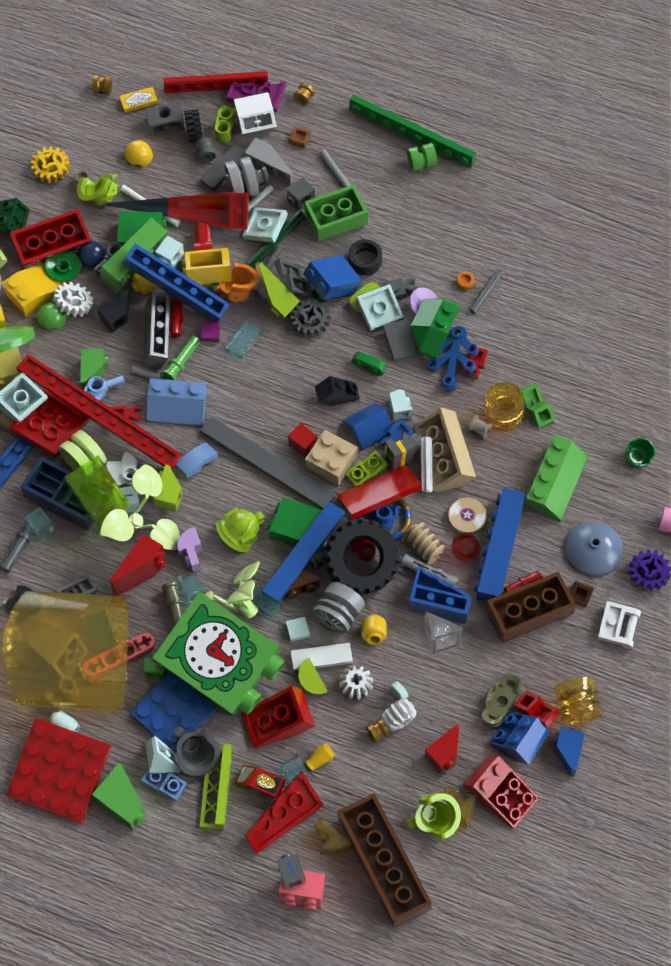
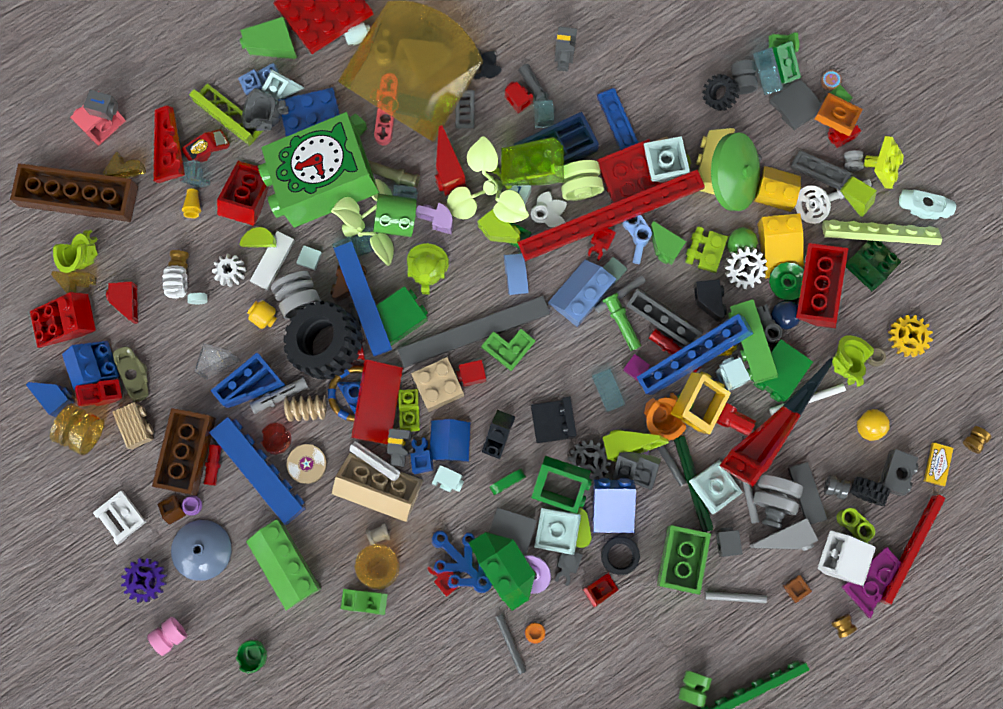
camera: 125 degrees right, 15 degrees up
(36, 554) = (518, 96): none -> red brick
(75, 334) = (712, 251): none -> lime plate
(139, 393) = (615, 268): none -> sand green tile
(213, 575) = (394, 215): none -> bright green brick
(265, 423) = (508, 353): none -> bright green plate
(295, 359) = (553, 421): none -> black bracket
(346, 337) = (566, 470): none -> green window
(402, 255) = (600, 590): none -> red slope
(541, 665) = (133, 425): none -> tan brick
(568, 577) = (191, 505): none -> medium lavender plate

